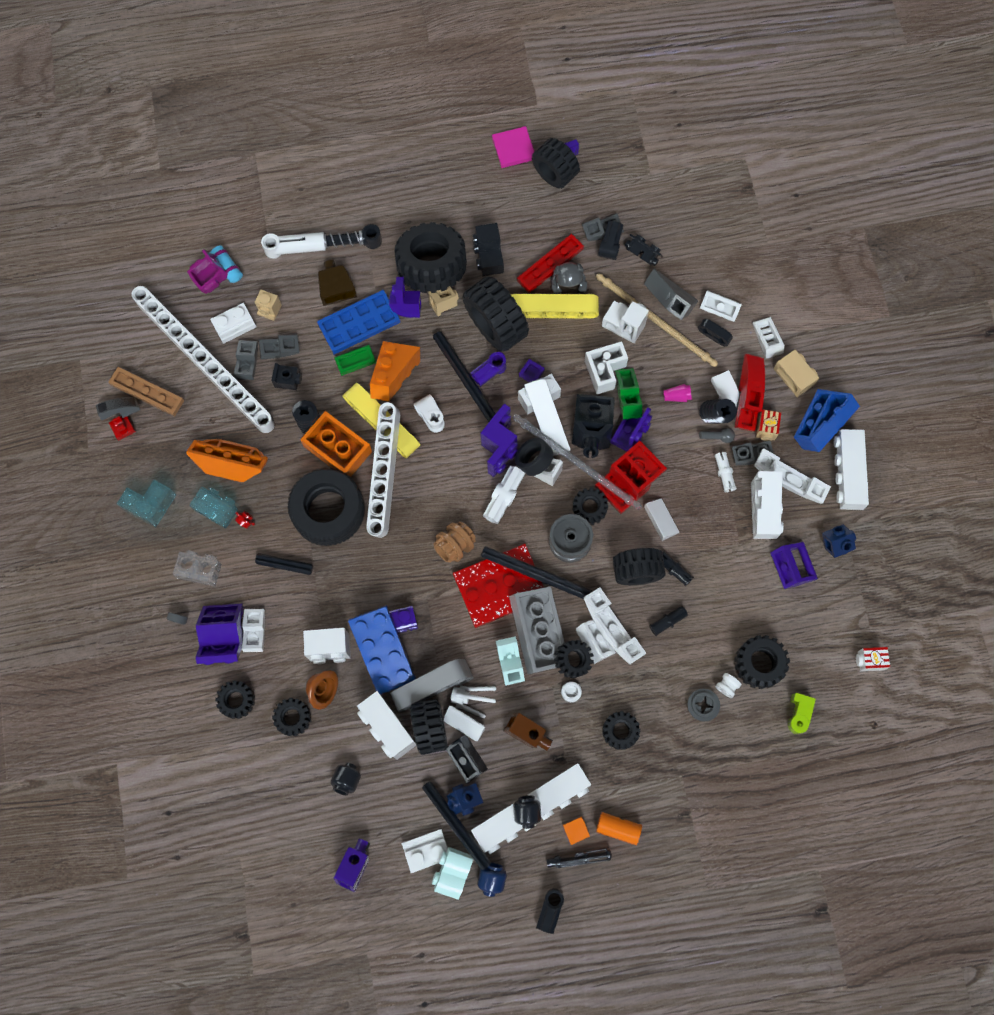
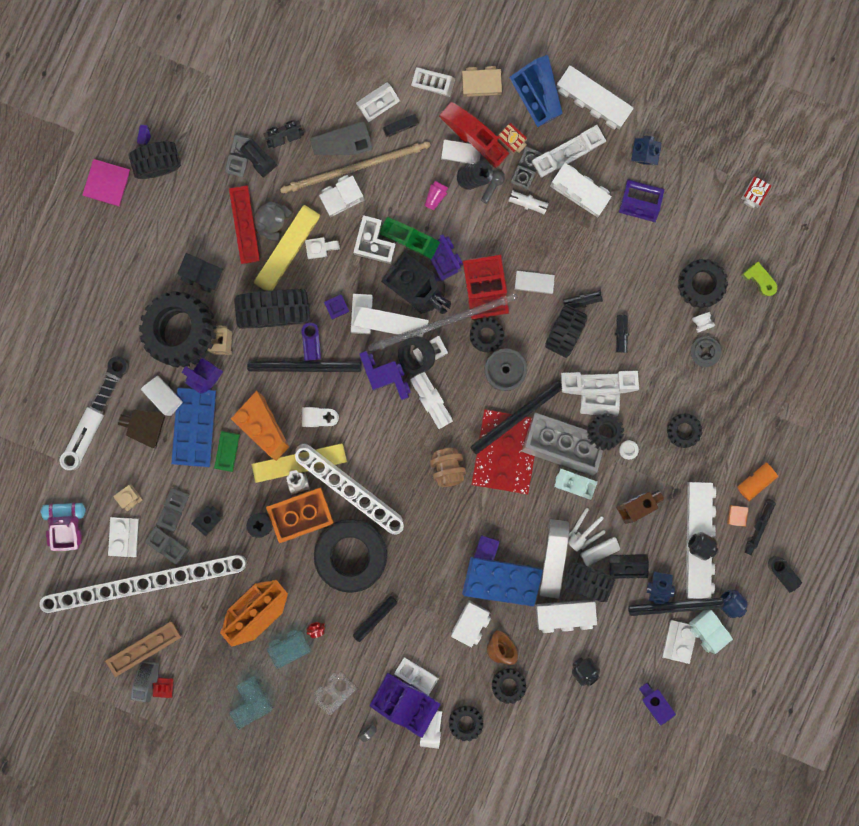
camera: 60 degrees left, 15 degrees up
(206, 675) = (432, 735): none -> white piece
(363, 425) = (297, 482): none -> white piece
(368, 281) = (162, 396): none -> white slope
(570, 329) = (318, 248): none -> white plate

